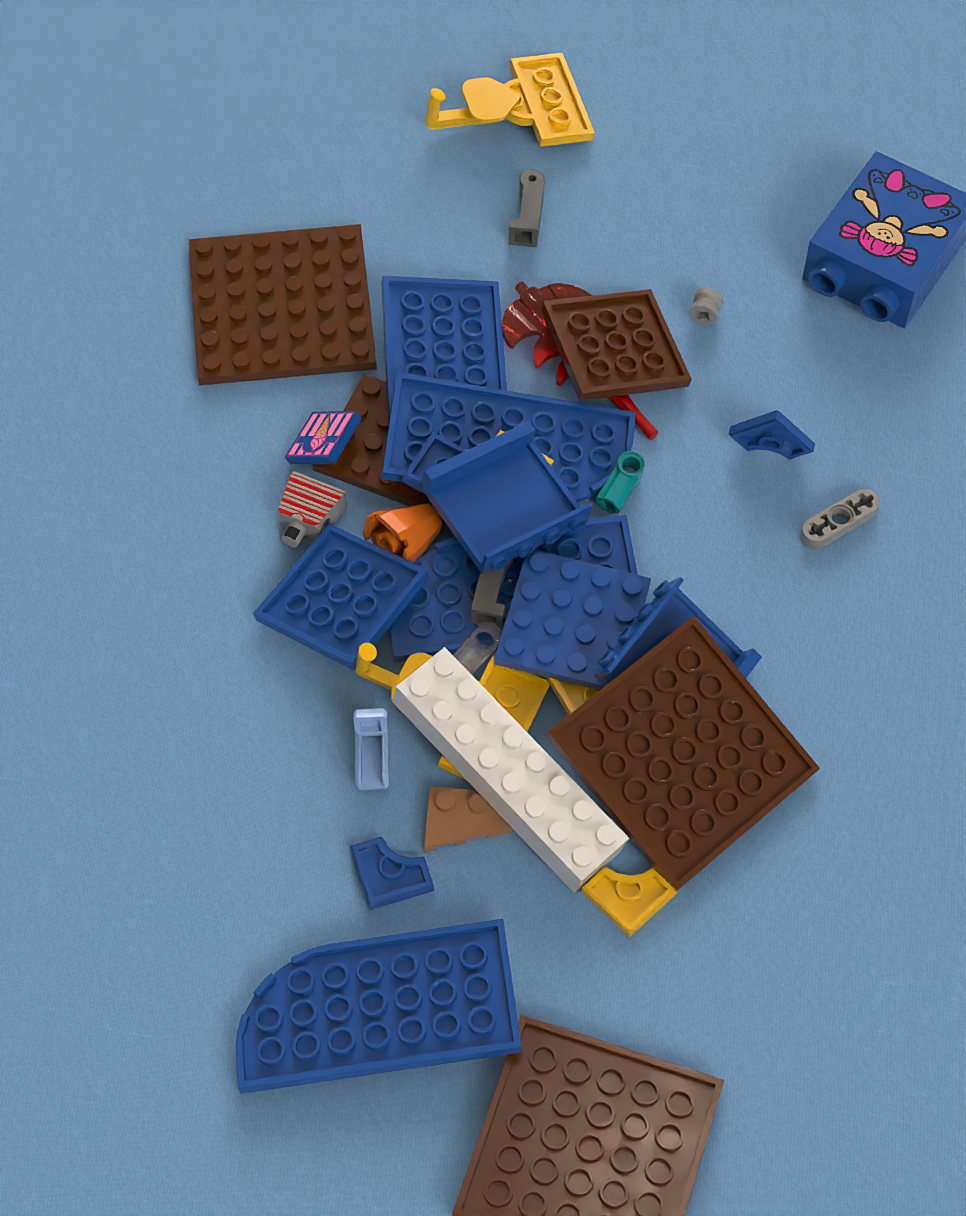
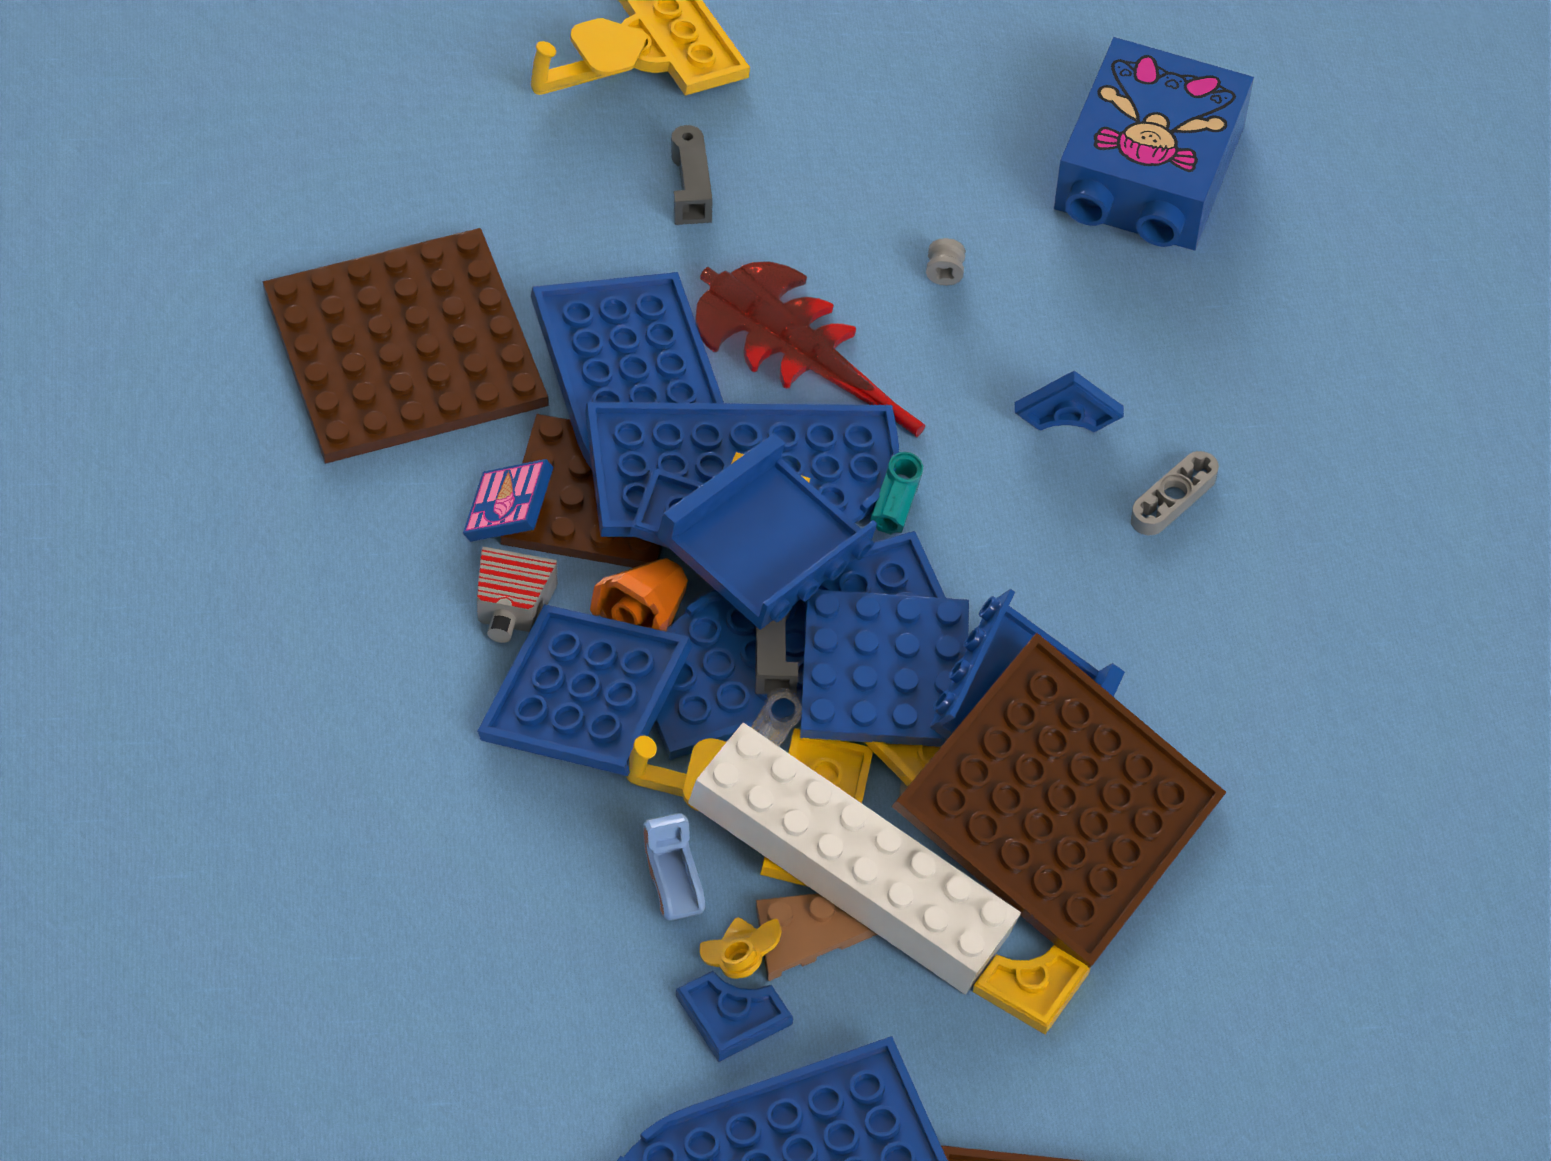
camera: 15 degrees left, 5 degrees down
(408, 822) = (741, 947): none -> yellow plate
(615, 344) = (846, 325): reddish brown plate -> none

